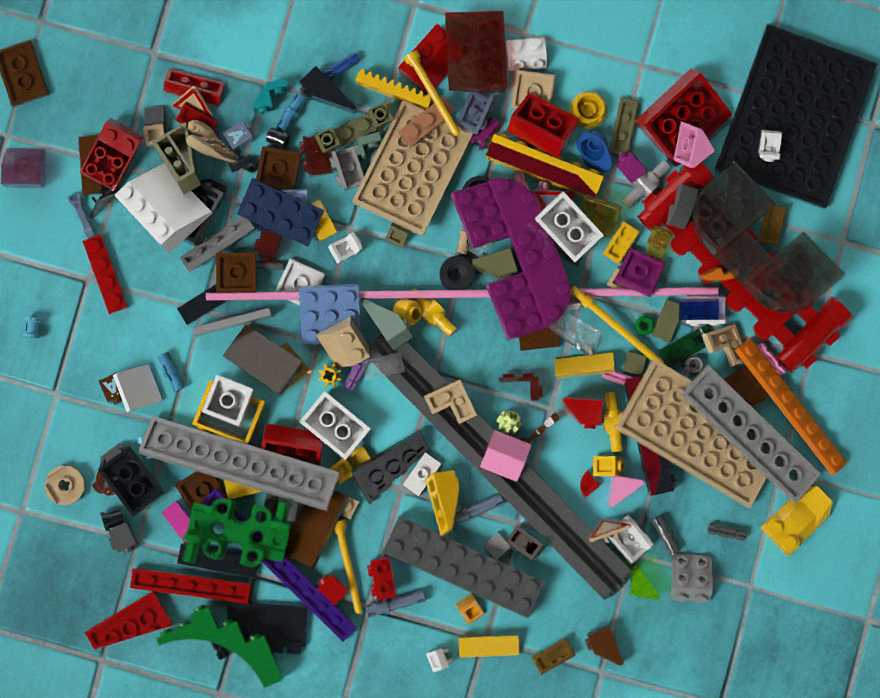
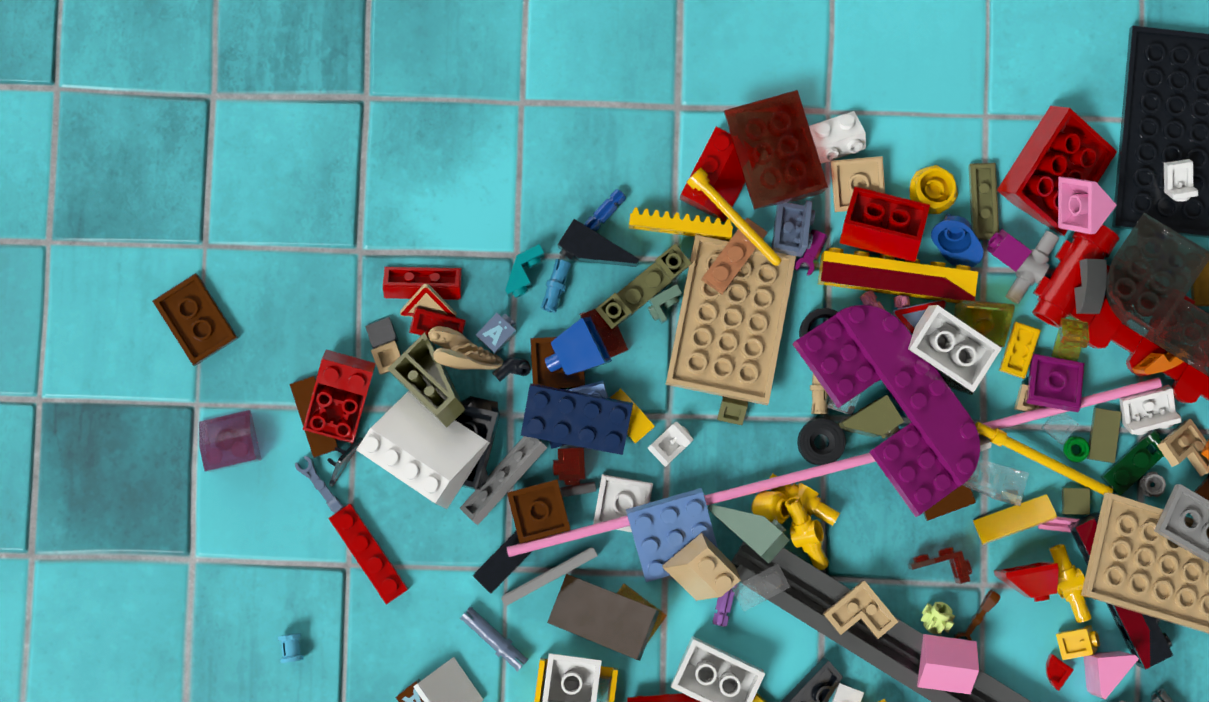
camera: 20 degrees left, 0 degrees up
(171, 372) = (486, 660): dark azure pin -> none
(185, 364) = (494, 639): none -> sand blue pin
(278, 138) = (548, 322): black bush -> none
(294, 161) = (578, 349): none -> blue torso
(324, 372) = (691, 621): yellow gear -> none
(348, 168) = (647, 339): light grey bracket -> none
(428, 336) = (806, 533): none -> yellow pin
(698, 309) = (1143, 412): clear blue plate -> none

